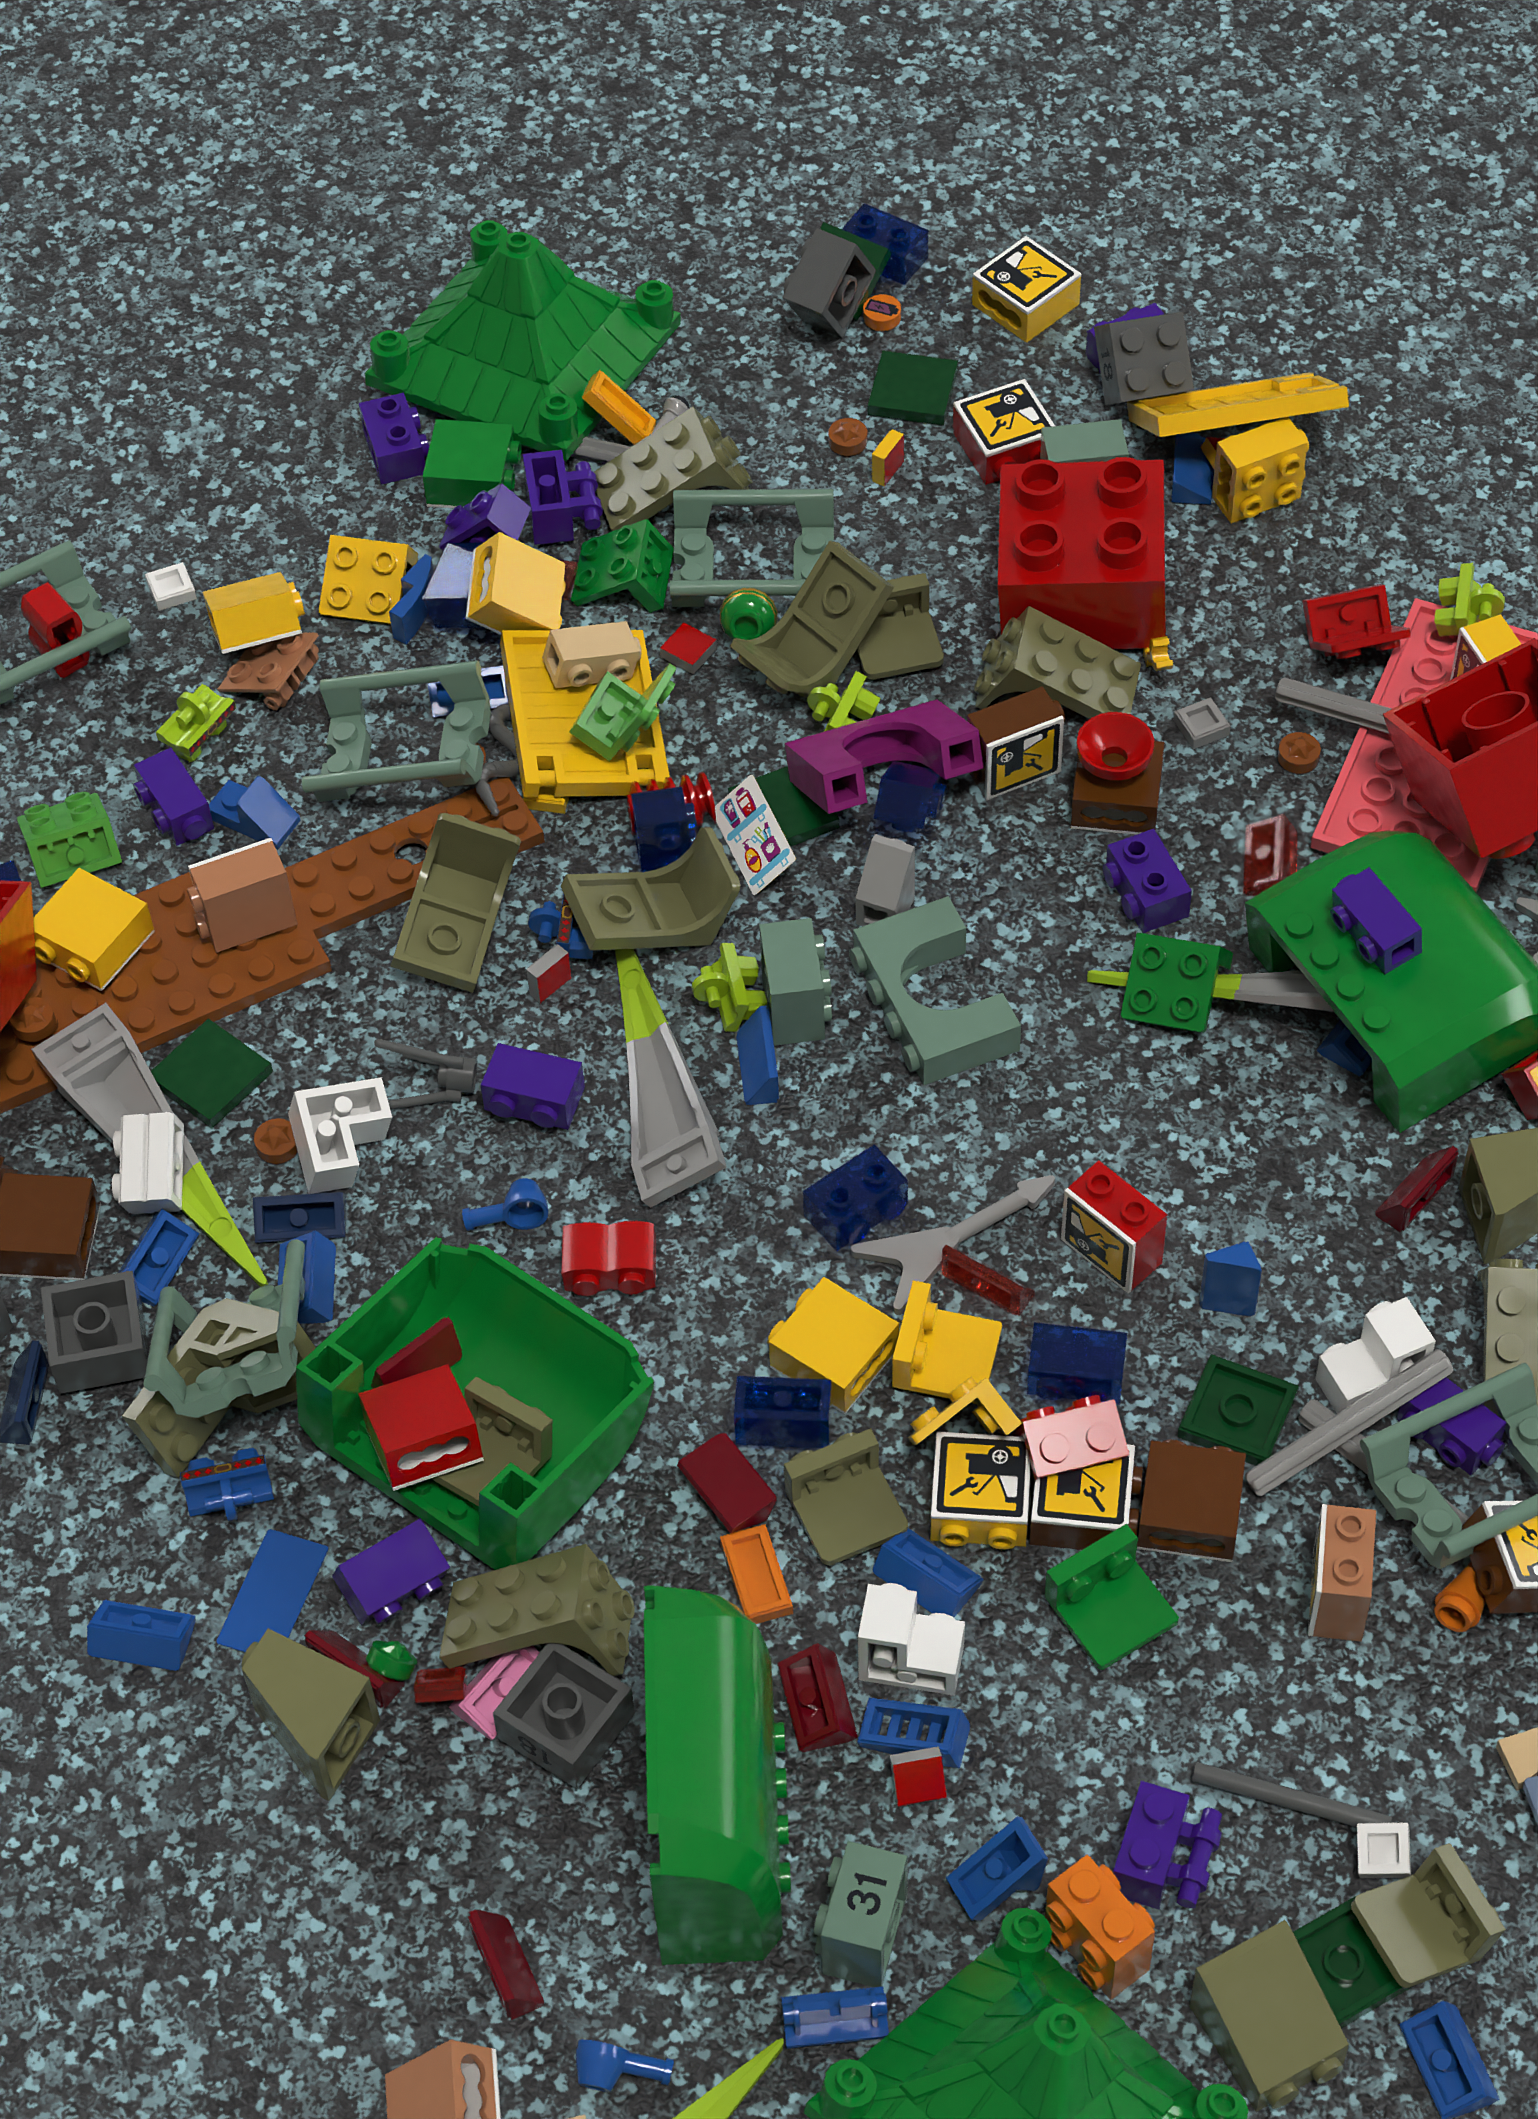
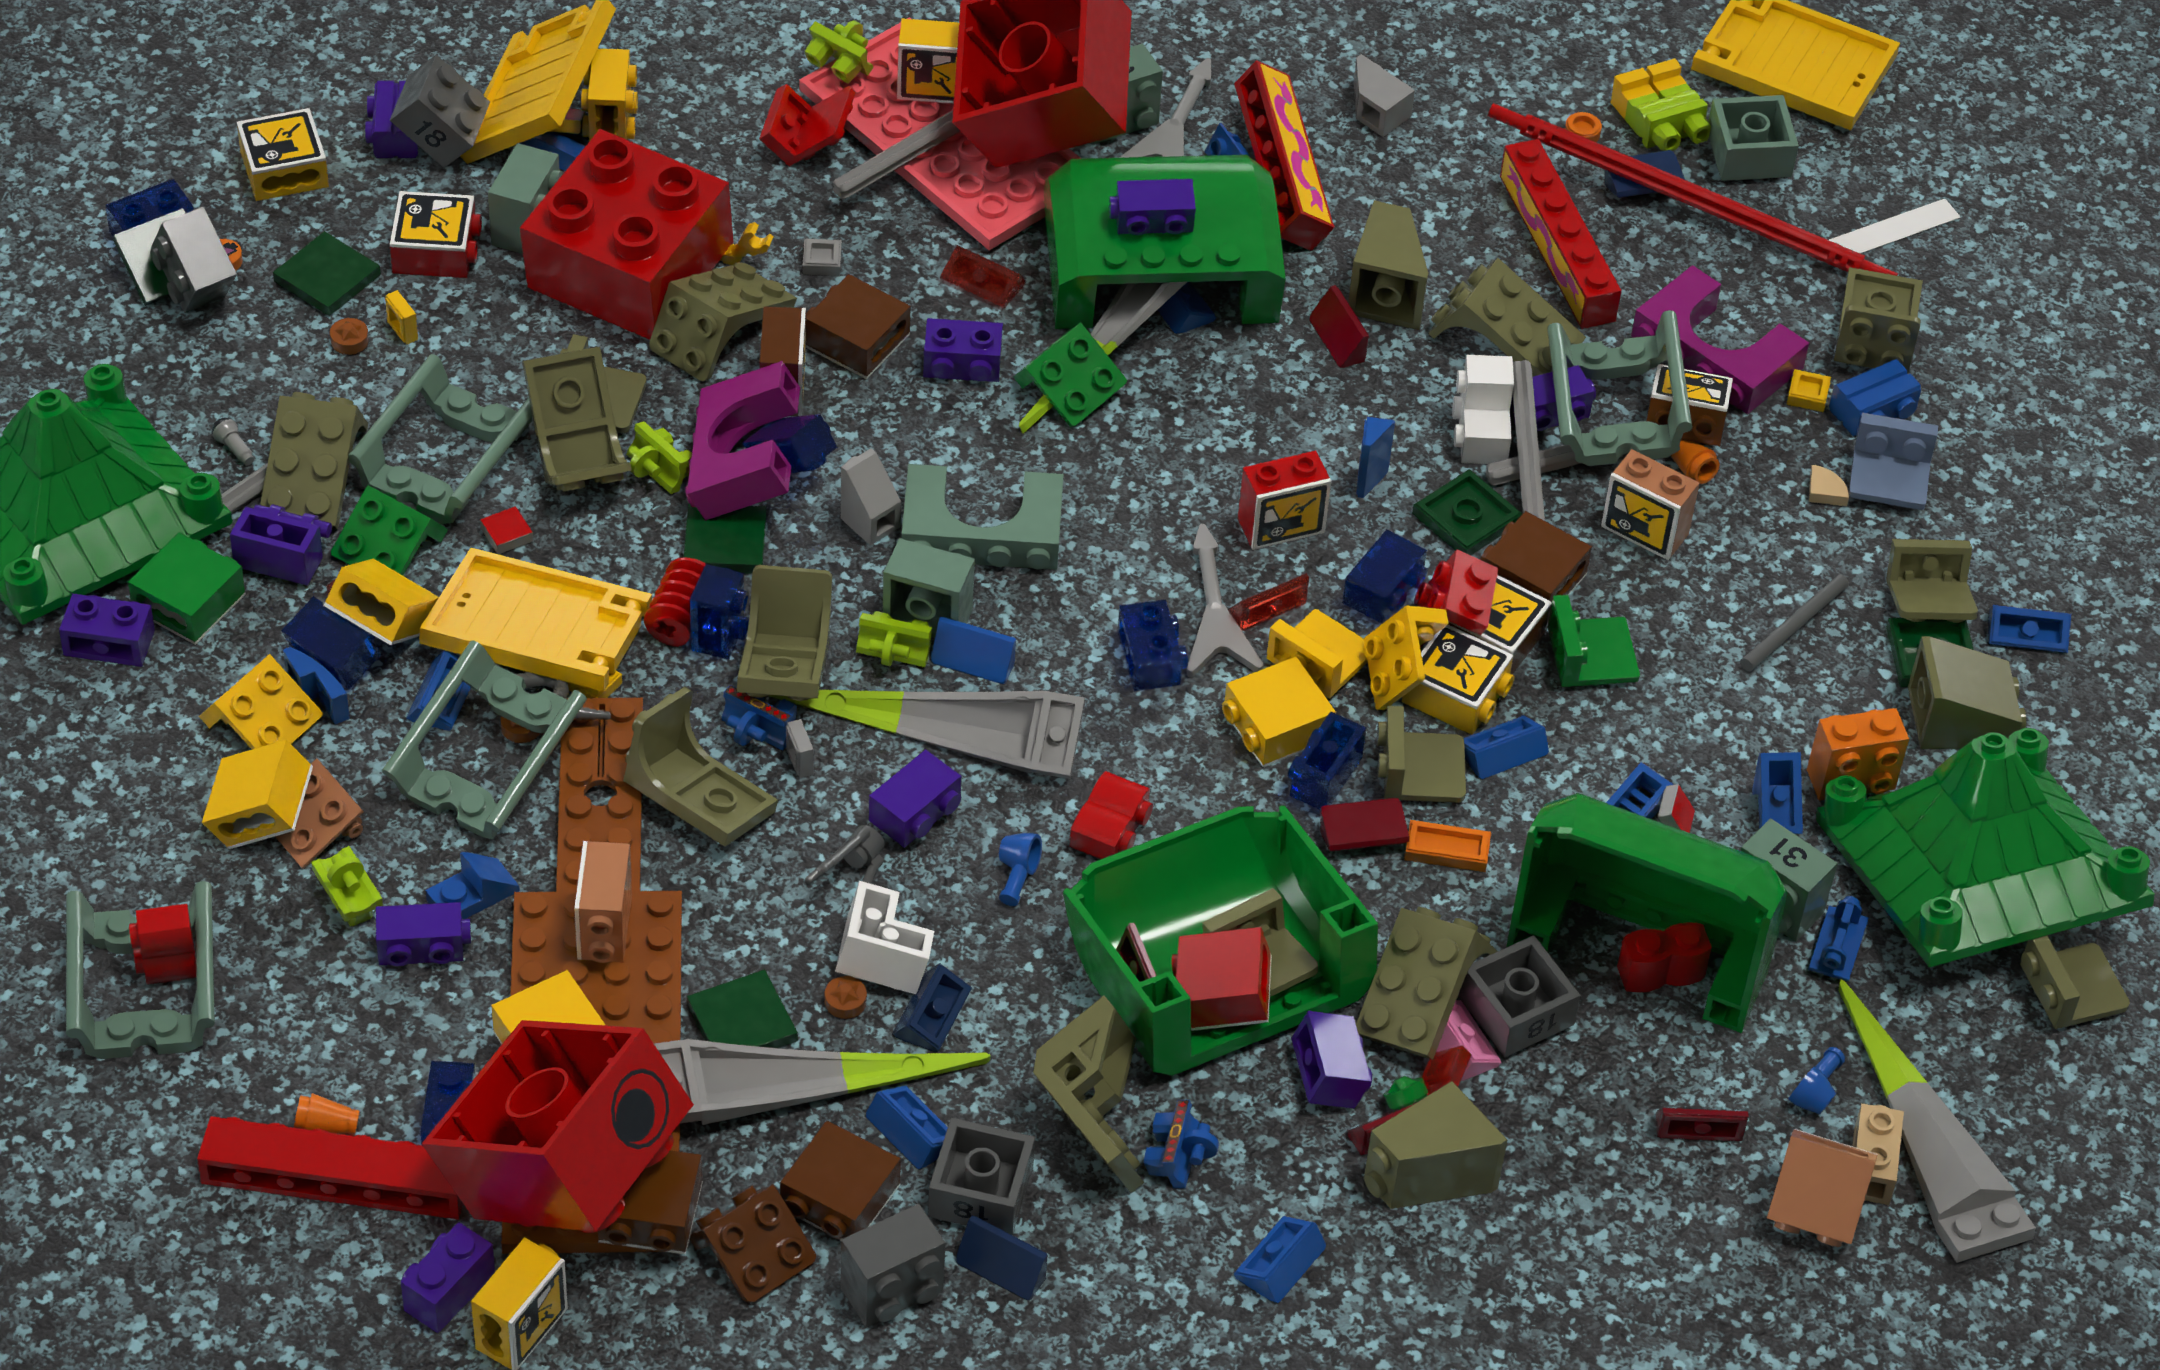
camera: 70 degrees left, 5 degrees down
(69, 837) = (403, 1019): bright green bracket -> none
(149, 1163) = (835, 1076): white brick -> none
(170, 586) = (151, 857): white tile -> none
(255, 1373) = (1125, 1081): sand green piece -> none
(273, 1589) = (1290, 1159): blue sticker -> none
(318, 1275) = (999, 1030): blue slope -> none
(485, 516) = (282, 592): dark purple brick -> none
(587, 652) = (493, 581): tan brick -> none
(617, 711) = (583, 576): bright green bracket -> none
(618, 408) = (213, 458): light orange tile -> none
(747, 614) = (517, 472): green piece -> none
(753, 835) = (745, 553): sticker -> none
(905, 1646) = (1567, 765): white brick -> none
(1115, 734) = (849, 285): red piece -> none
(1151, 1844) = (1799, 695): dark purple brick -> none
(1299, 752) = (893, 215): dark orange tile -> none
(1383, 1850) = (1864, 587): white plate -> none

